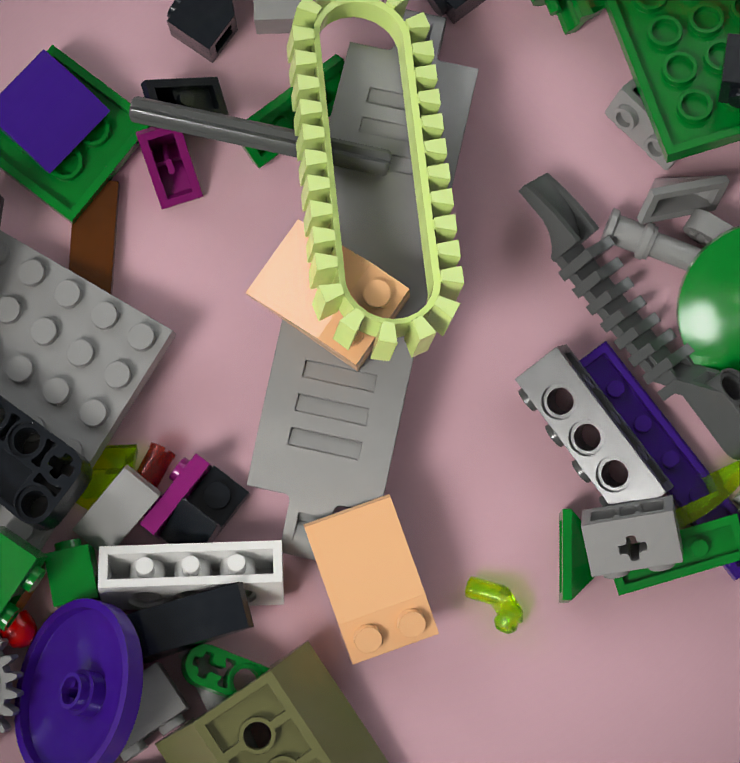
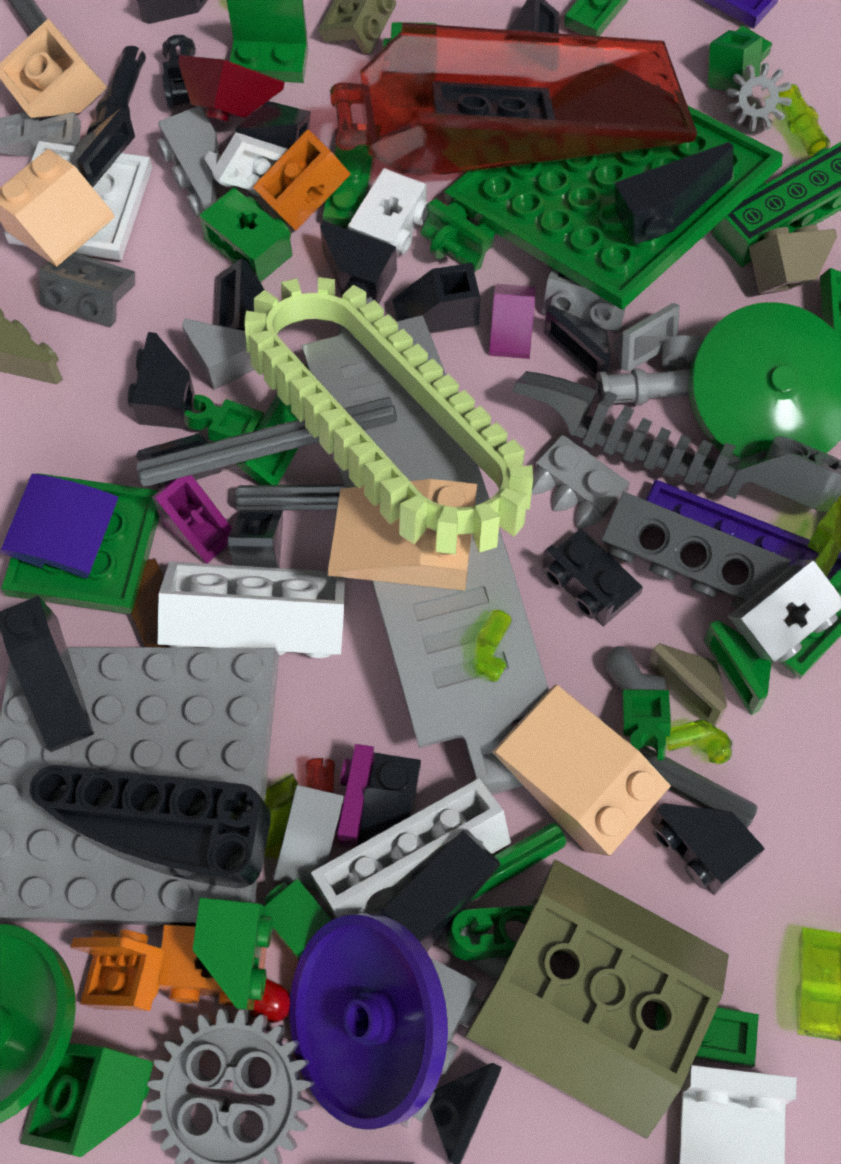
camera: 30 degrees left, 15 degrees down
(173, 277) = (251, 608): none -> white slope
(216, 210) = (257, 538): none -> black slope
(248, 83) = (223, 421): none -> green plate
(260, 180) = (288, 497): none -> dark grey axle
(290, 619) = (524, 855): none -> green axle
(347, 431) = (487, 643): none -> clear neon green arm
(449, 694) = (709, 841): none -> black slope
(459, 560) = (647, 719): none -> green plate
(465, 636) = (701, 789): none -> dark grey axle
(470, 514) = (627, 674): none -> dark grey arm
(492, 403) = (591, 577): none -> black bracket
(507, 56) = (444, 297): none -> black slope
(526, 545) = (692, 678): none -> dark tan slope
(537, 303) = (578, 480): none -> light grey plate
(571, 106) = (512, 321): none -> magenta slope
(624, 164) = (579, 339): none -> black slope

